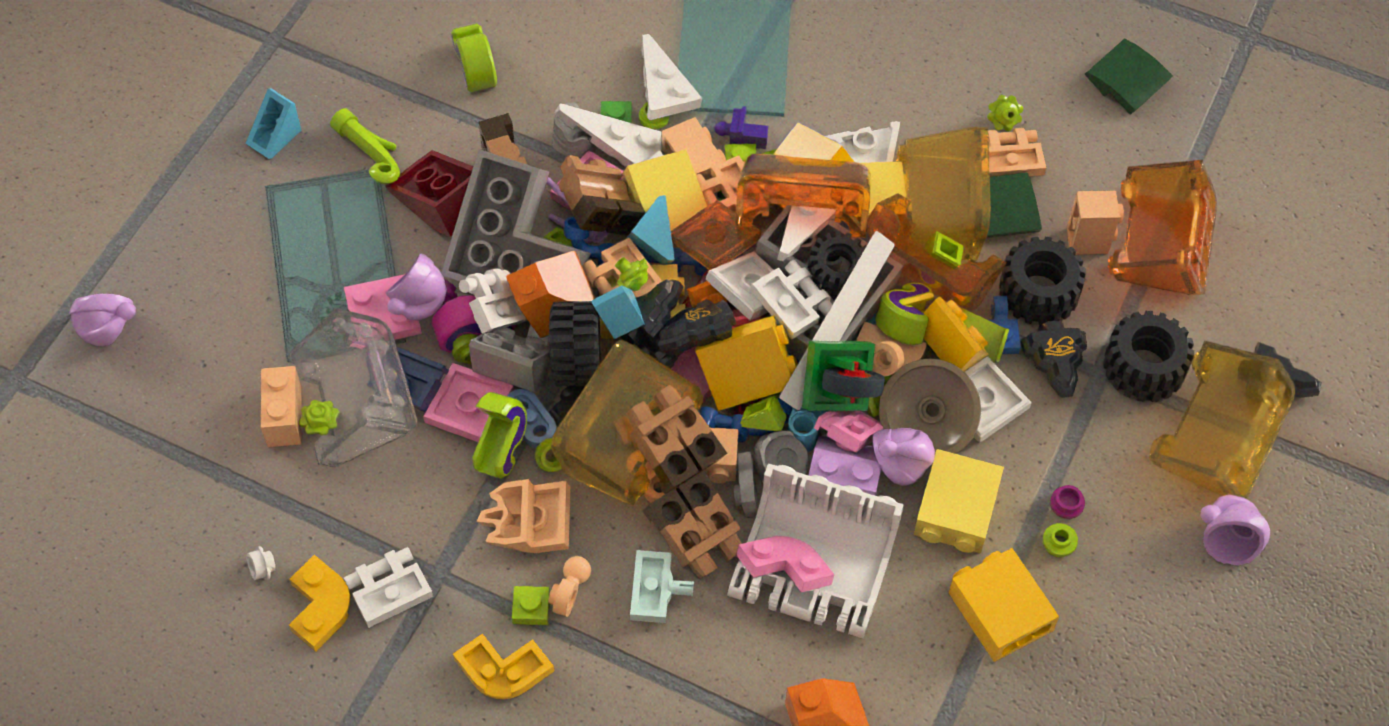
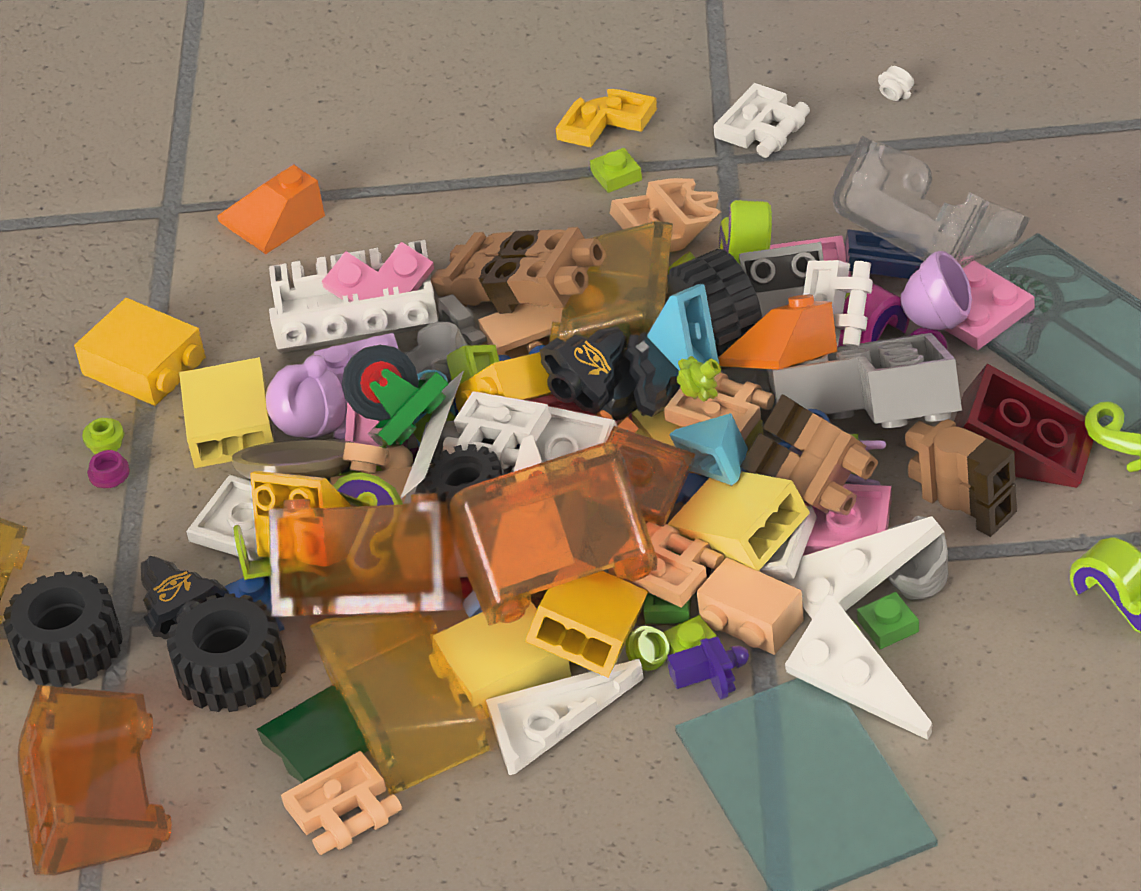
camera: 160 degrees right, 15 degrees down
(281, 406) = (993, 175): light nougat brick -> none
(319, 417) = (947, 188): lime plant -> none
(328, 603) = (806, 84): yellow plate -> none
(563, 596) = (588, 201): light nougat plate -> none
(654, 586) = (498, 214): light aqua plate -> none
(944, 249) = (357, 598): lime slope -> none
(1005, 112) = (371, 848): lime plant -> none
(1094, 222) = (185, 731): light nougat brick -> none

